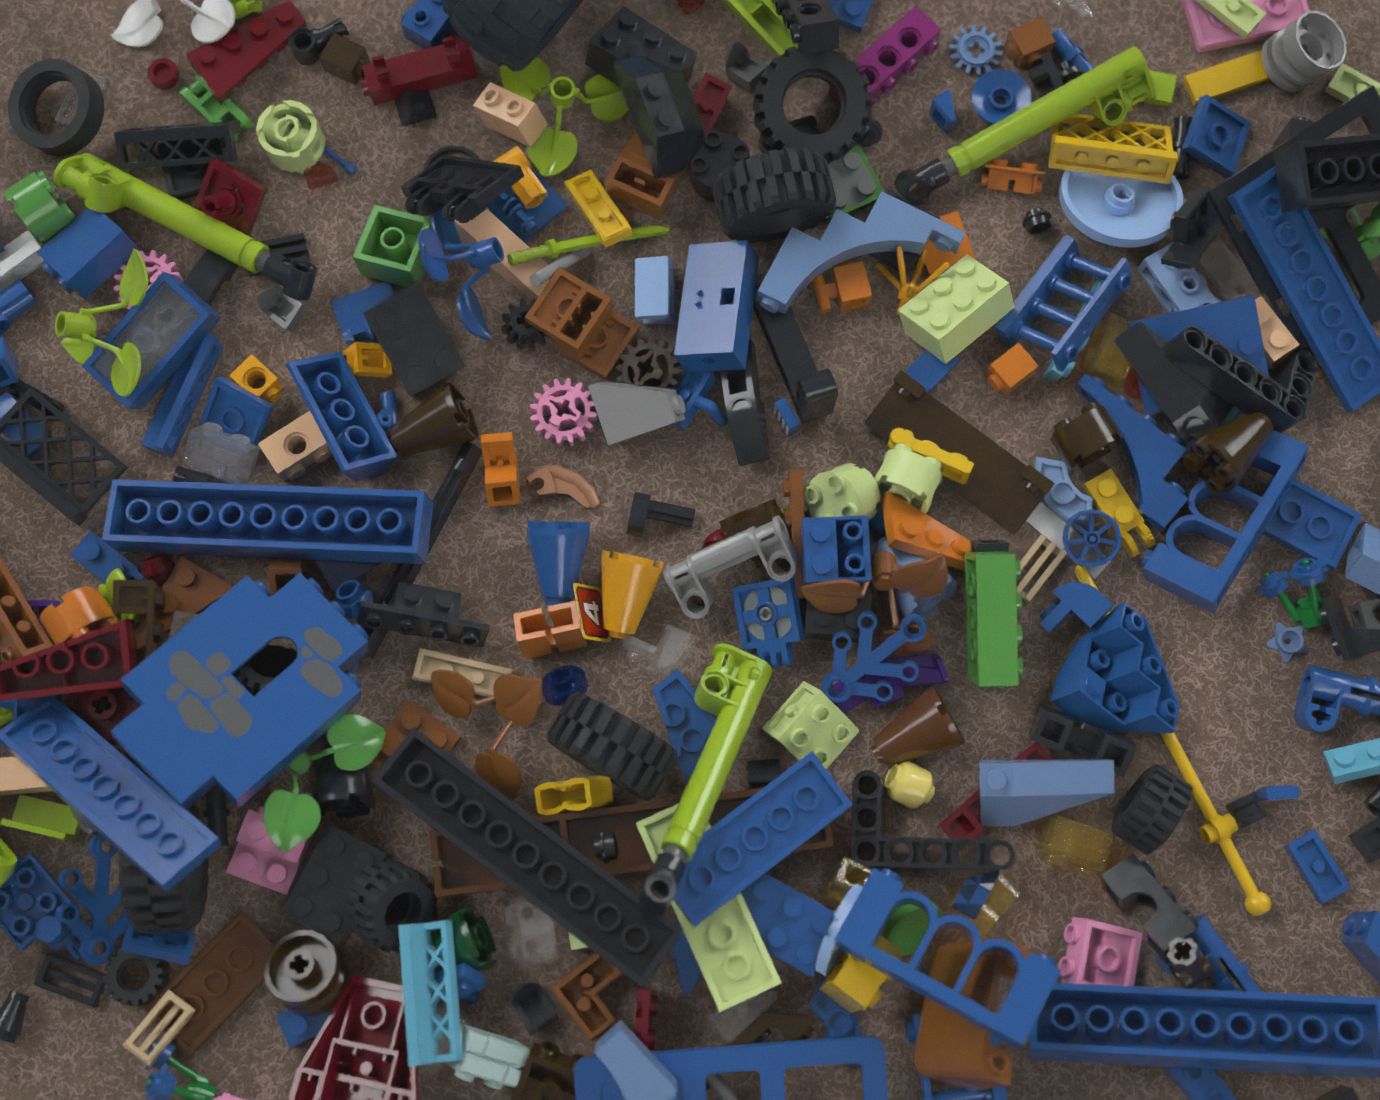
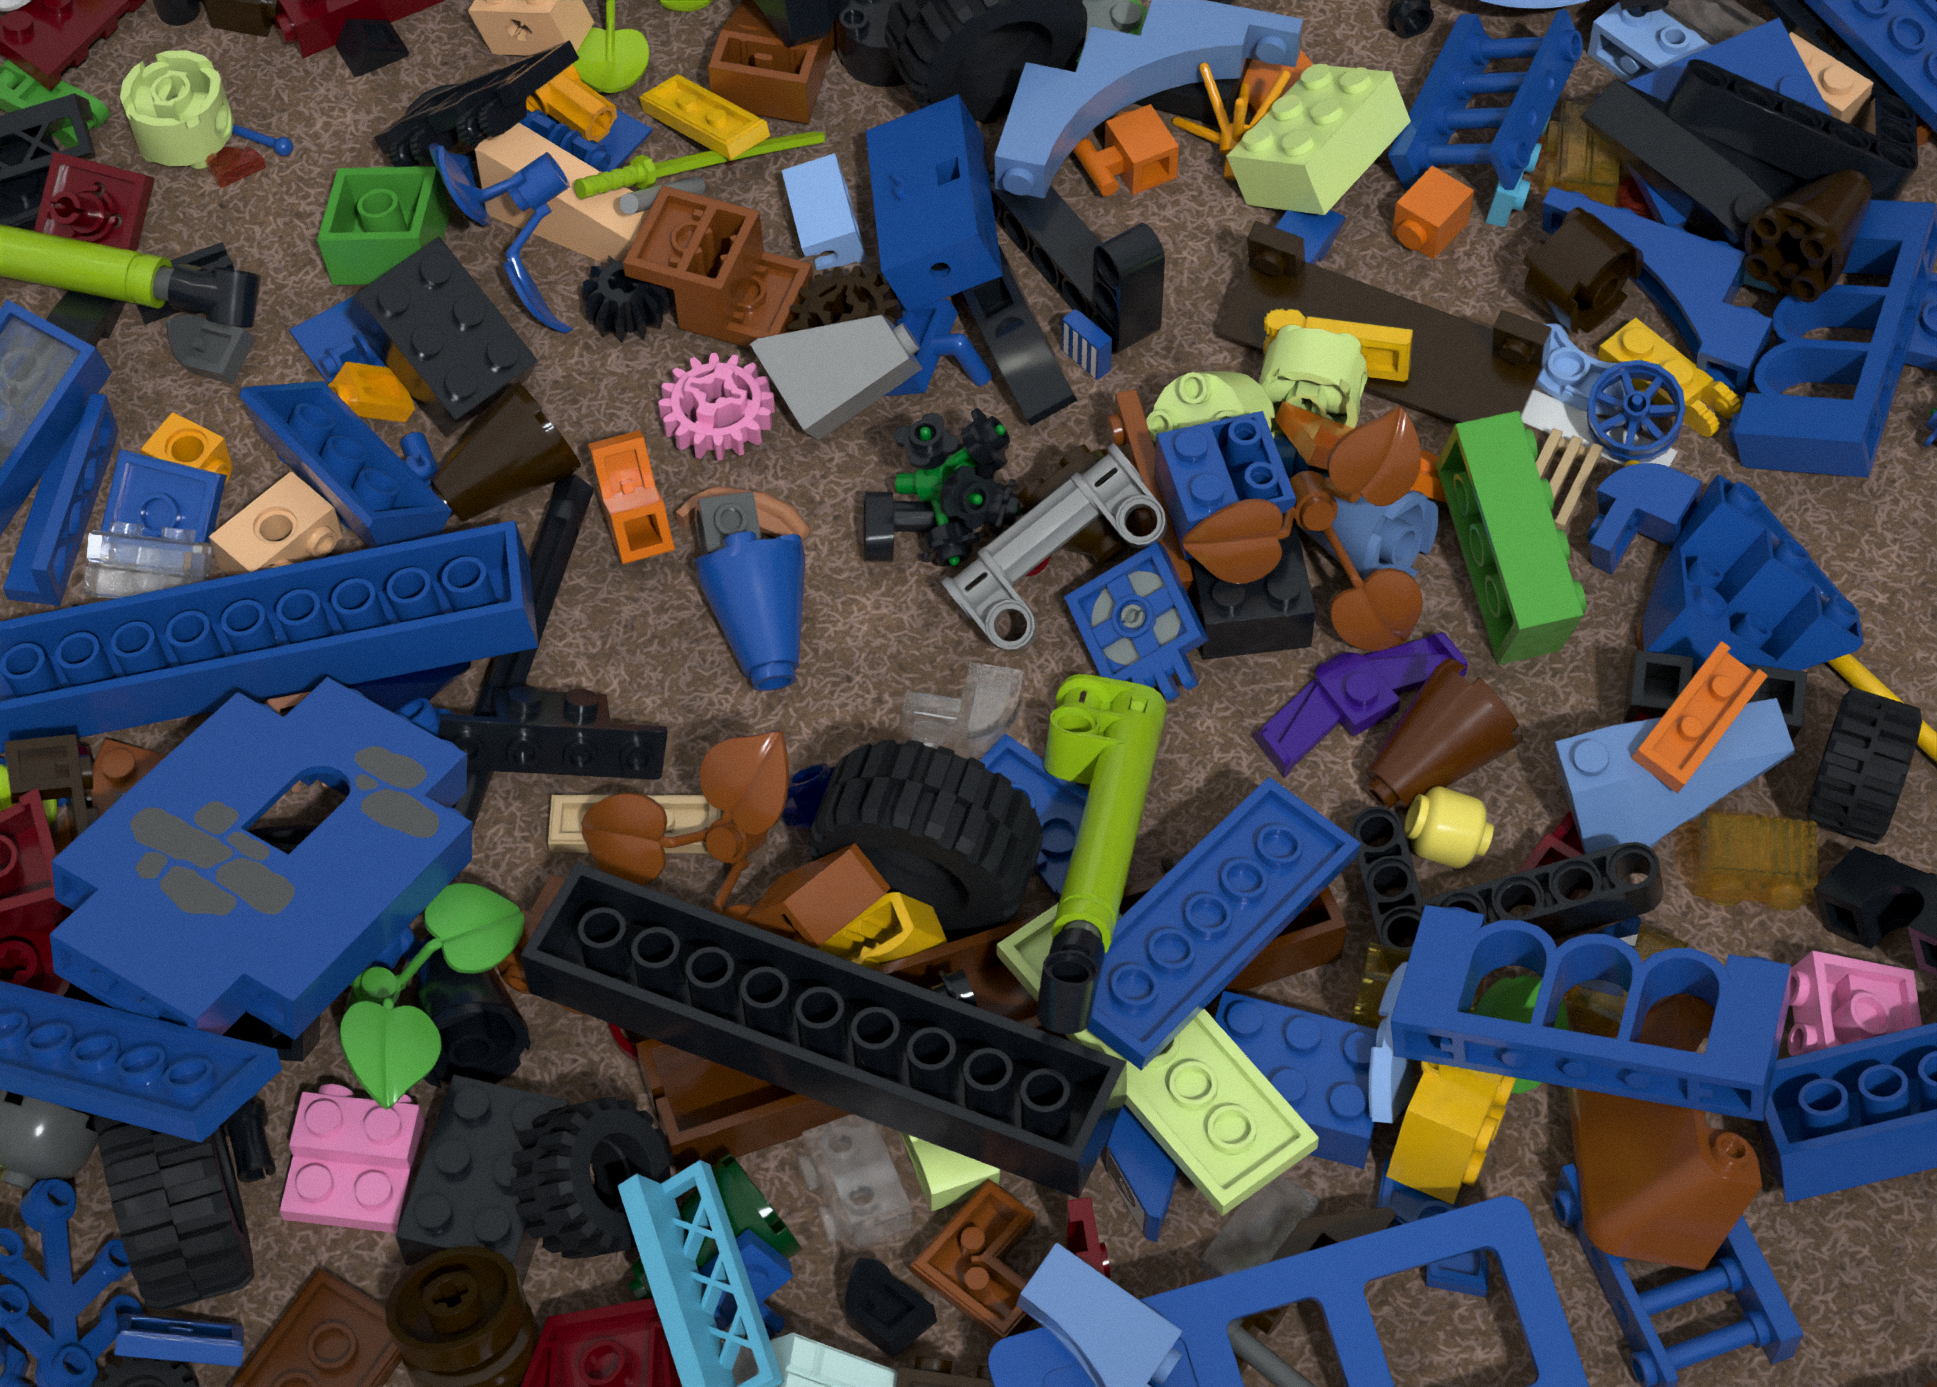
camera: 10 degrees left, 20 degrees down
(538, 639) = (798, 700): orange piece -> none
(543, 770) = (819, 897): none -> dark orange slope
(551, 502) = (724, 516): none -> dark grey brick
(590, 612) = (837, 674): sticker -> none
(626, 590) = (887, 625): light orange cone -> none
(685, 518) = (958, 484): none -> black plant
(811, 723) = (1247, 751): yellowish green bracket -> none
(870, 661) = (1326, 641): blue plant -> none
(1064, 769) = (1698, 718): none -> orange hinge

